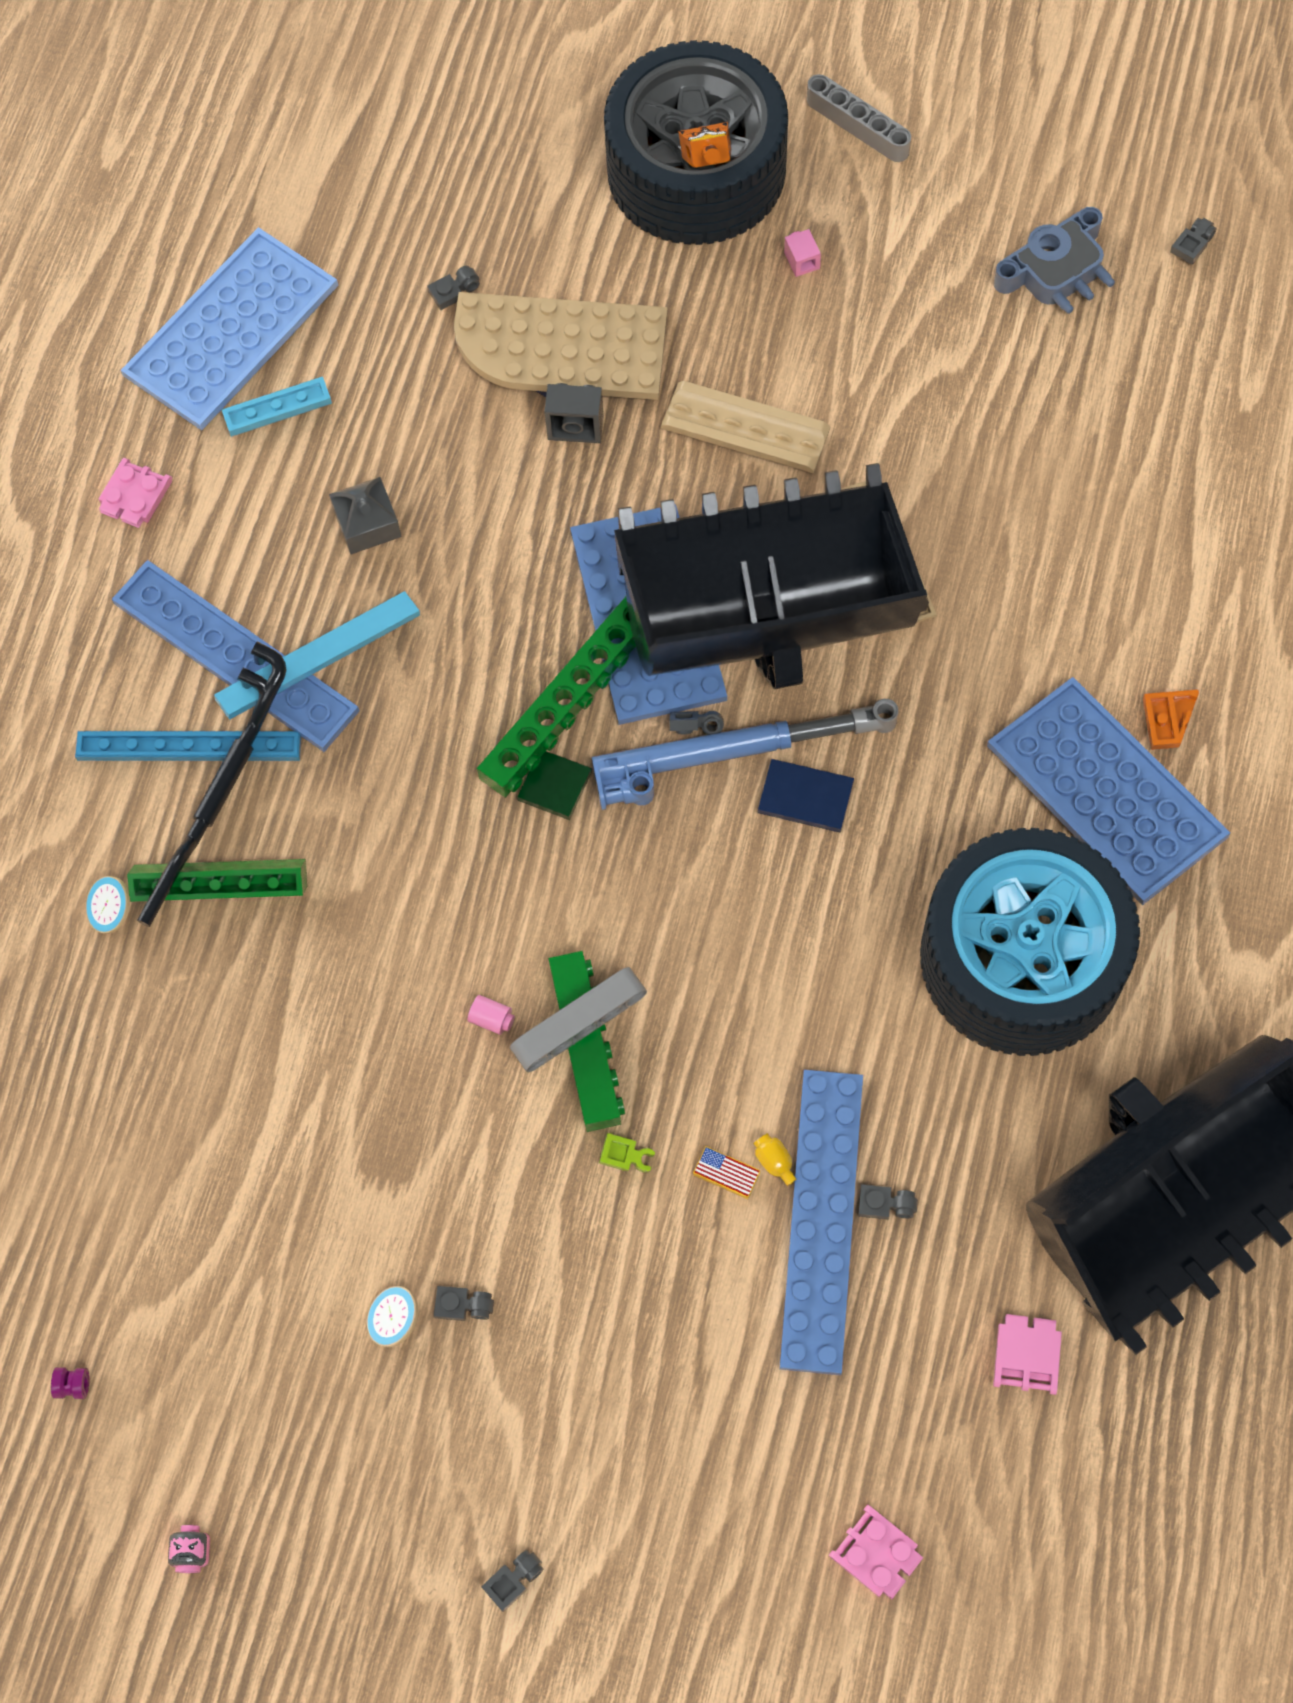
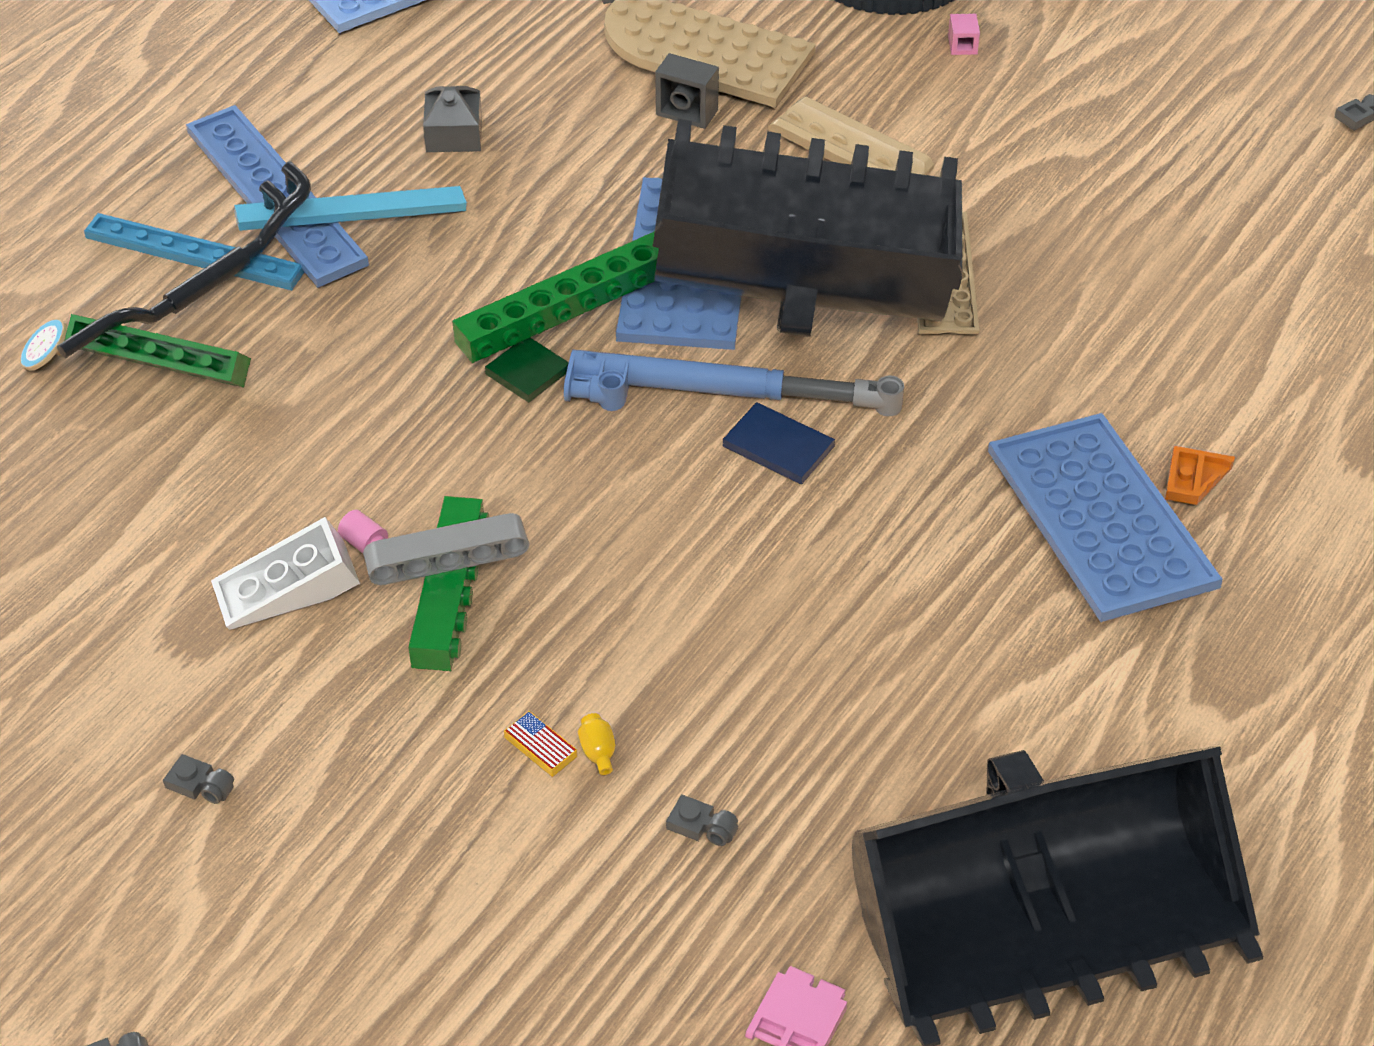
camera: 15 degrees right, 20 degrees down
(133, 493) = (252, 61): bright pink plate -> none
(276, 406) = (415, 30): medium azure plate -> none
(392, 1316) = (119, 765): piece -> none
(443, 1083) = (286, 577): none -> white slope
(620, 1153) = (437, 690): lime plate -> none
(688, 721) = (683, 350): dark grey plate -> none
(821, 1223) = (619, 825): medium blue plate -> none
(1064, 270) = (1213, 102): sand blue piece -> none
(1067, 879) = (953, 560): wheel -> none

